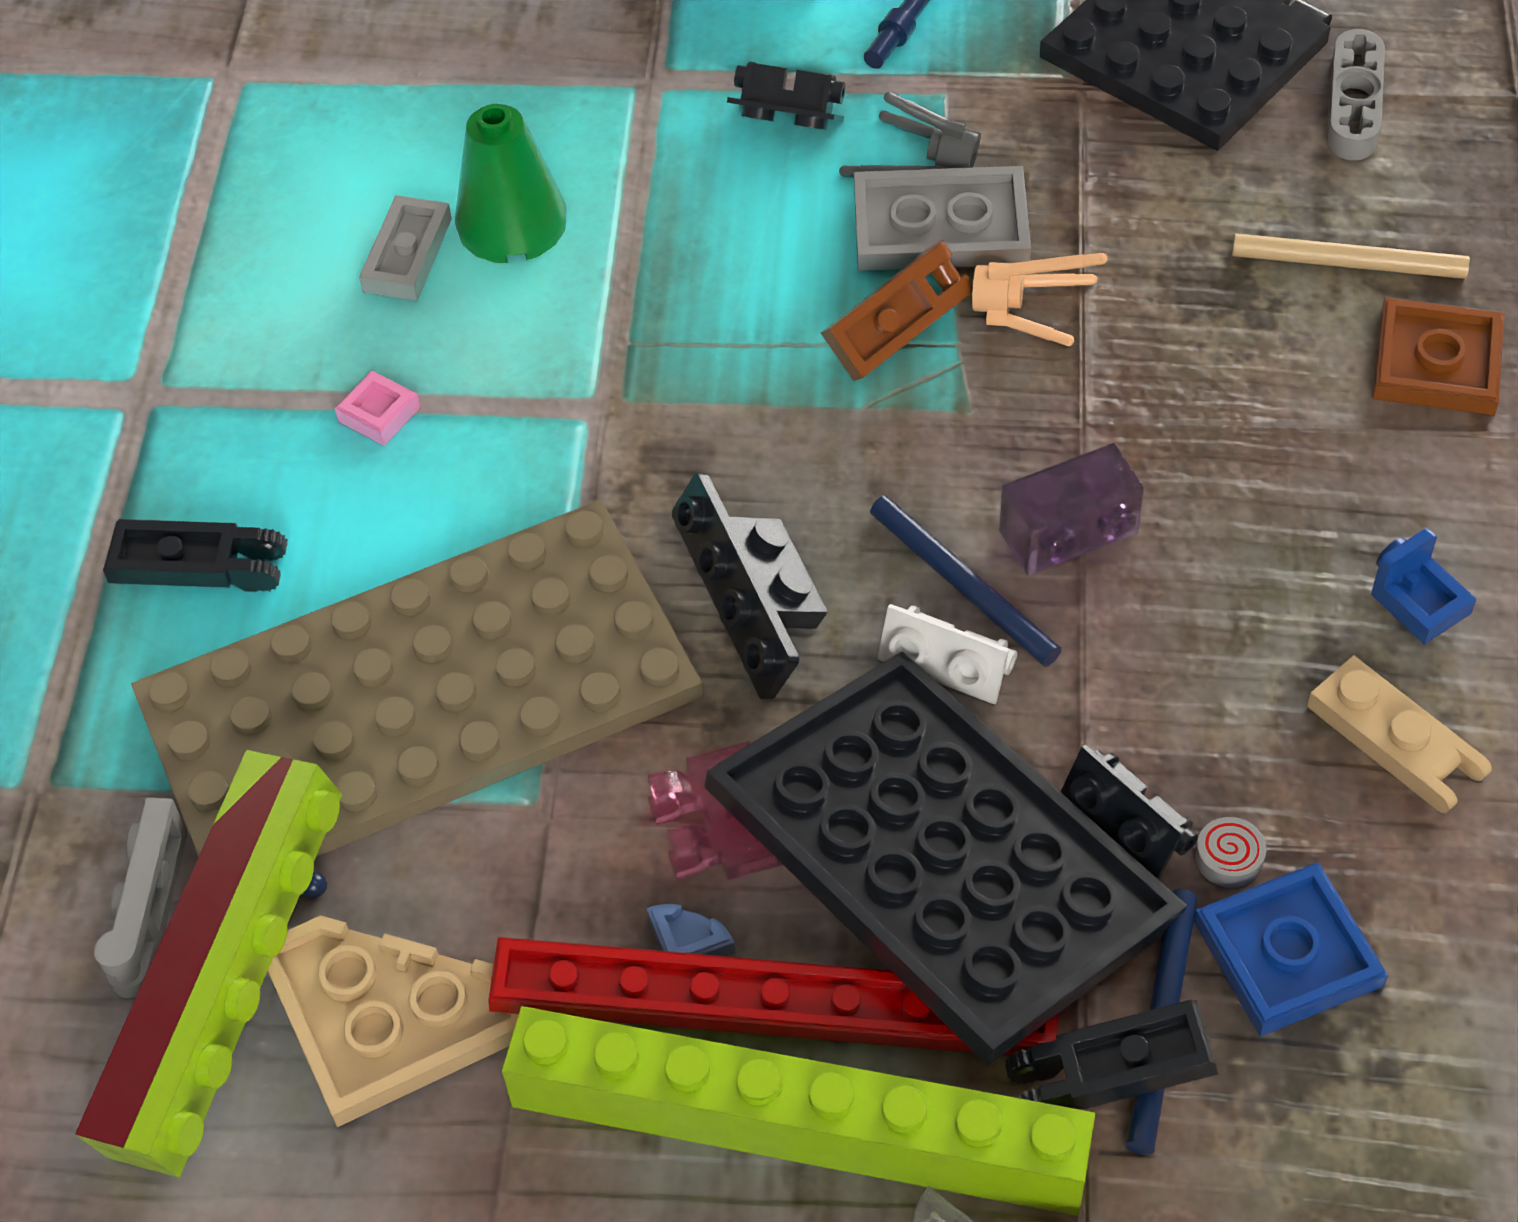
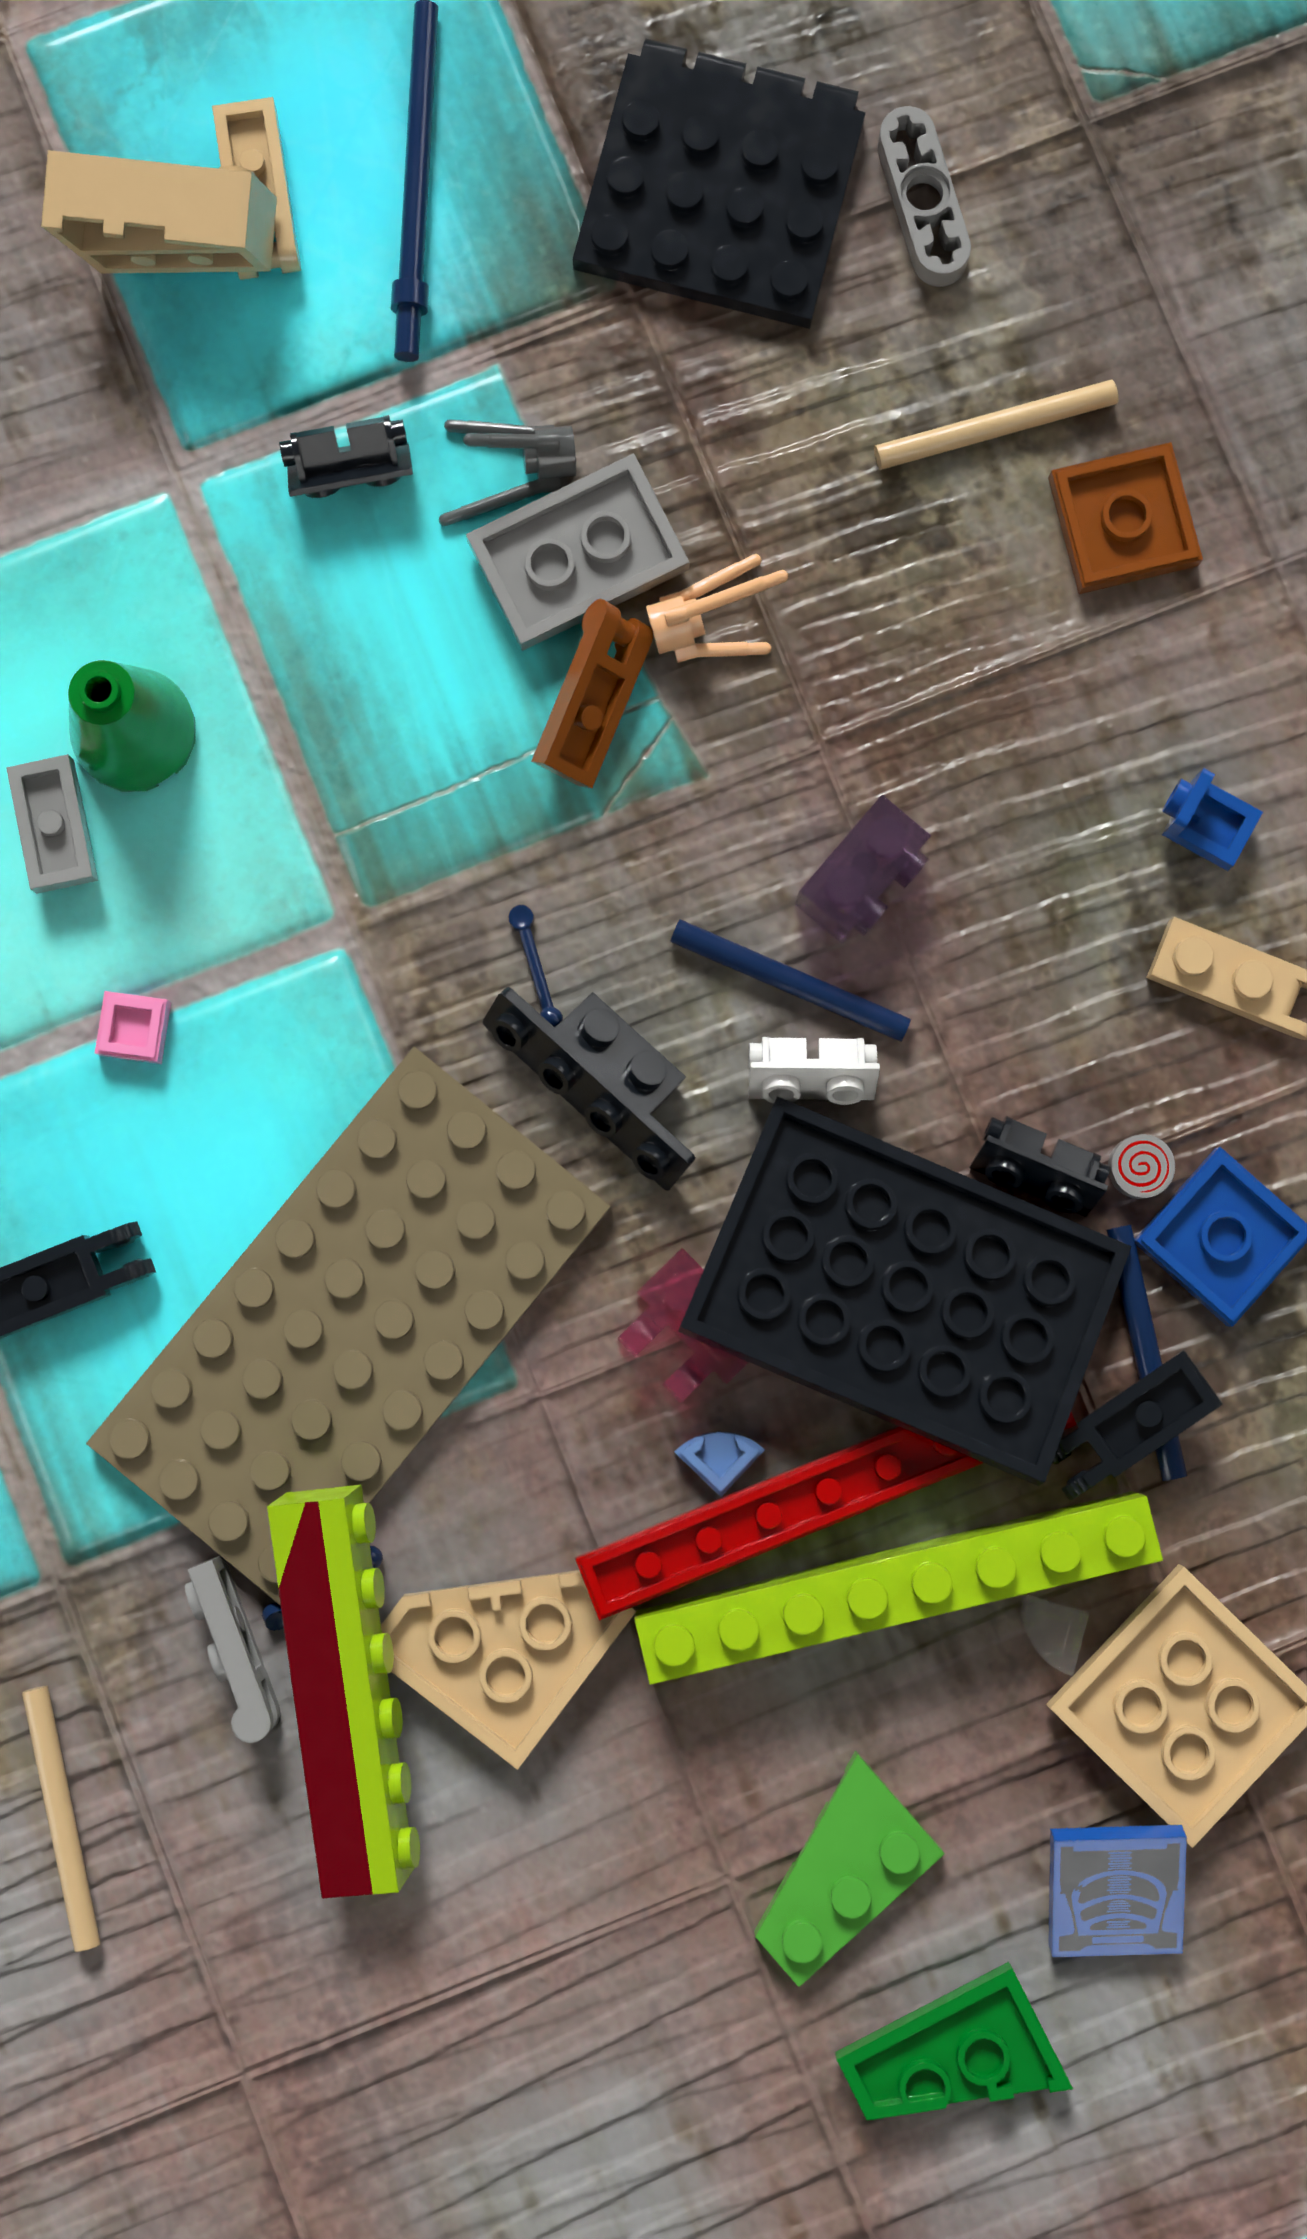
camera: 30 degrees left, 30 degrees up
(748, 453) = (521, 920): none -> dark blue hinge

